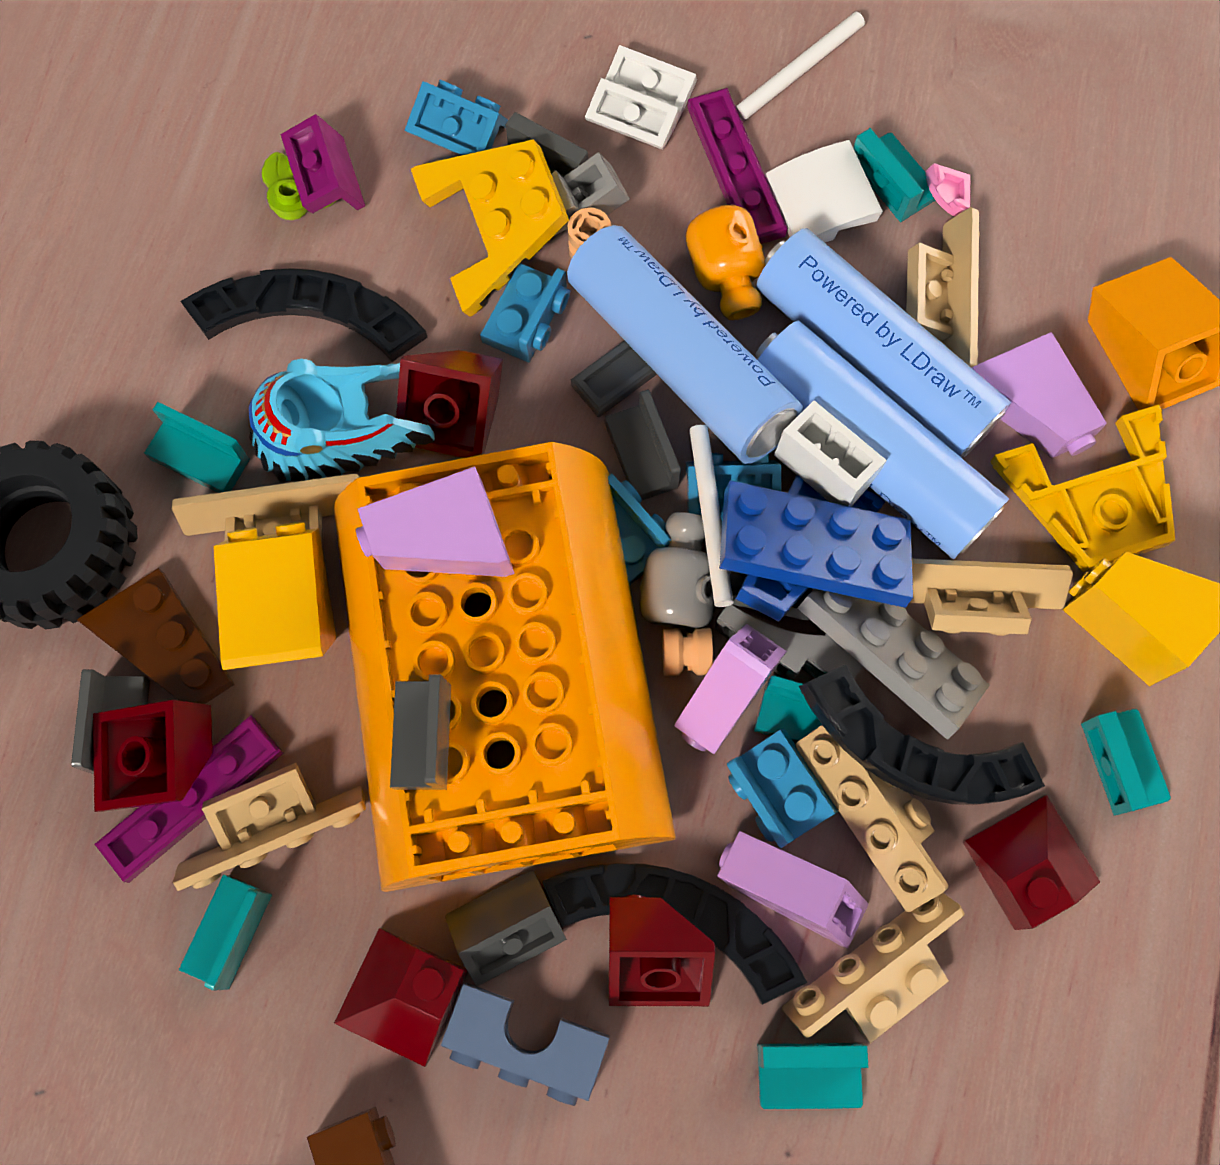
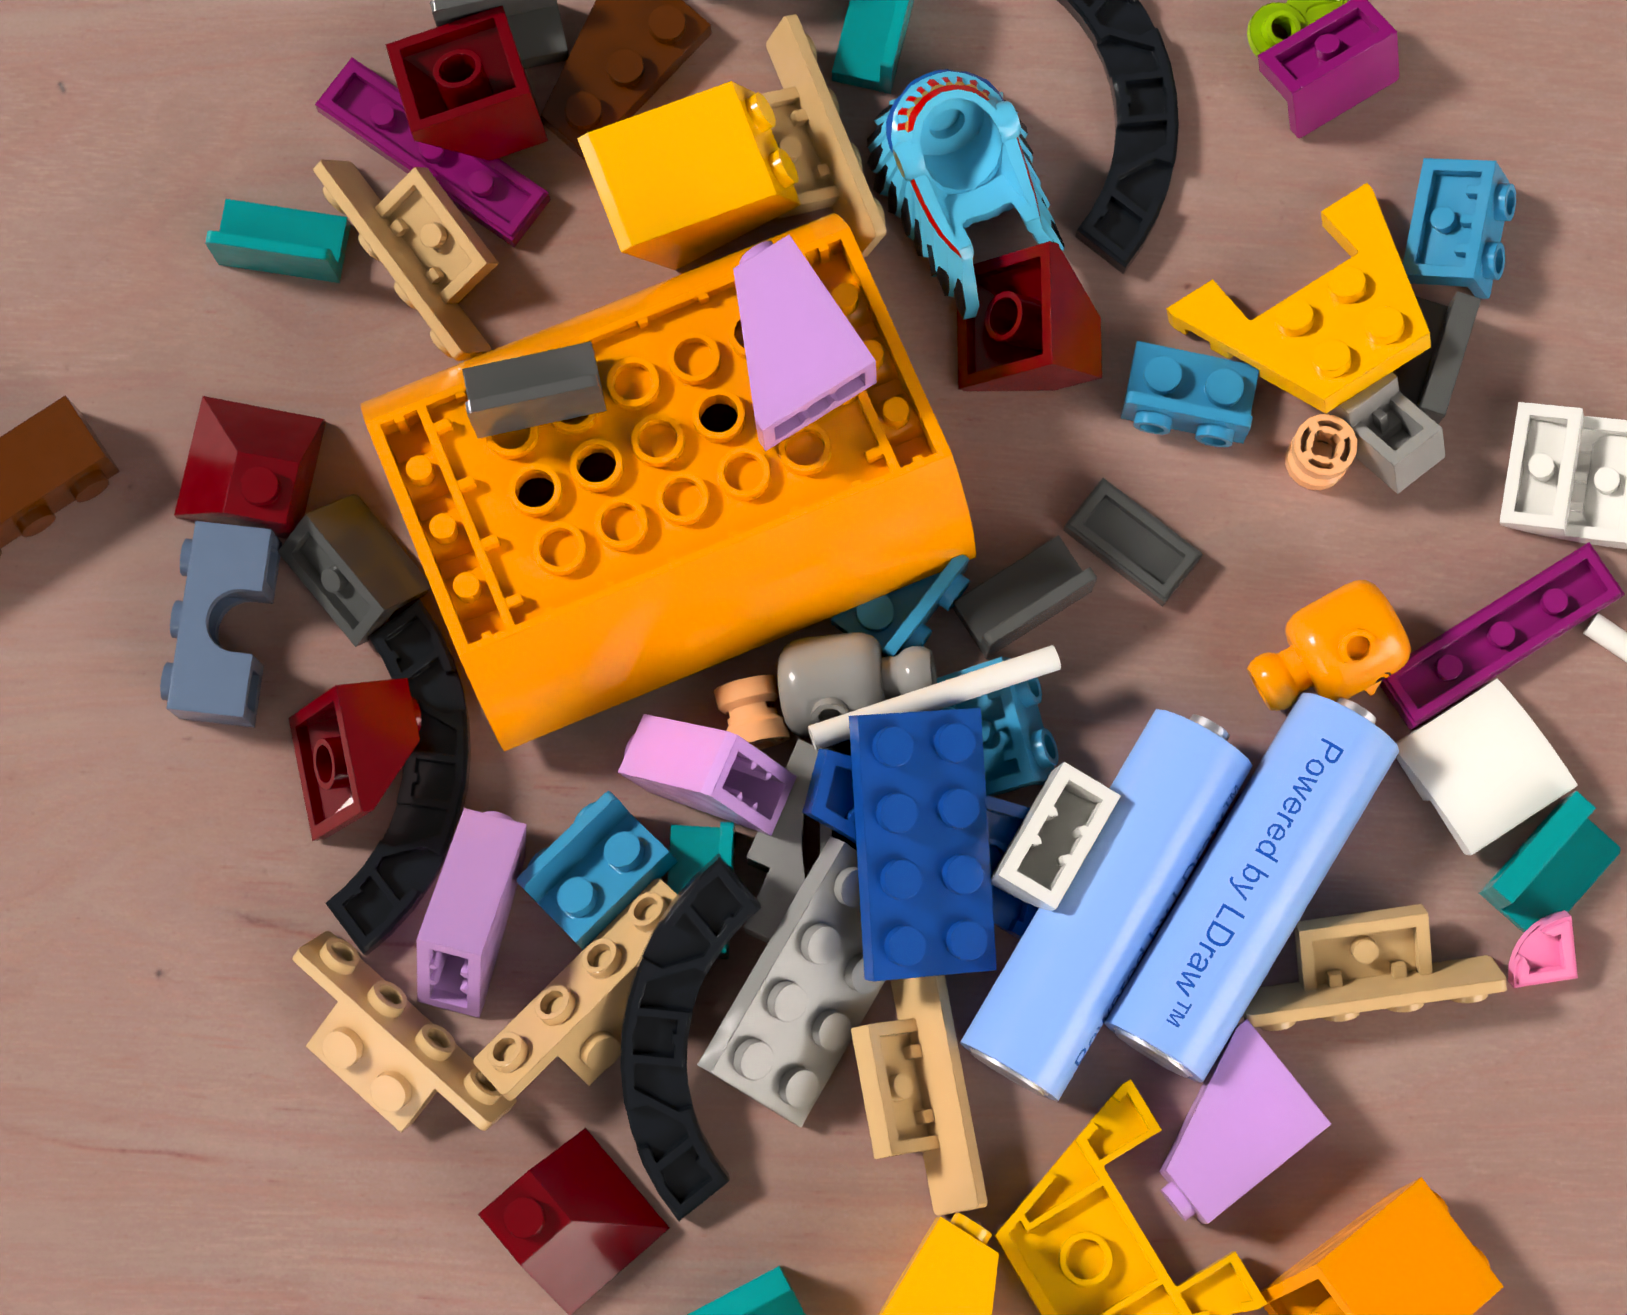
camera: 80 degrees right, 5 degrees up
(683, 343) = (1174, 605): light blue piece -> none
(811, 1075) = (254, 980): teal panel -> none

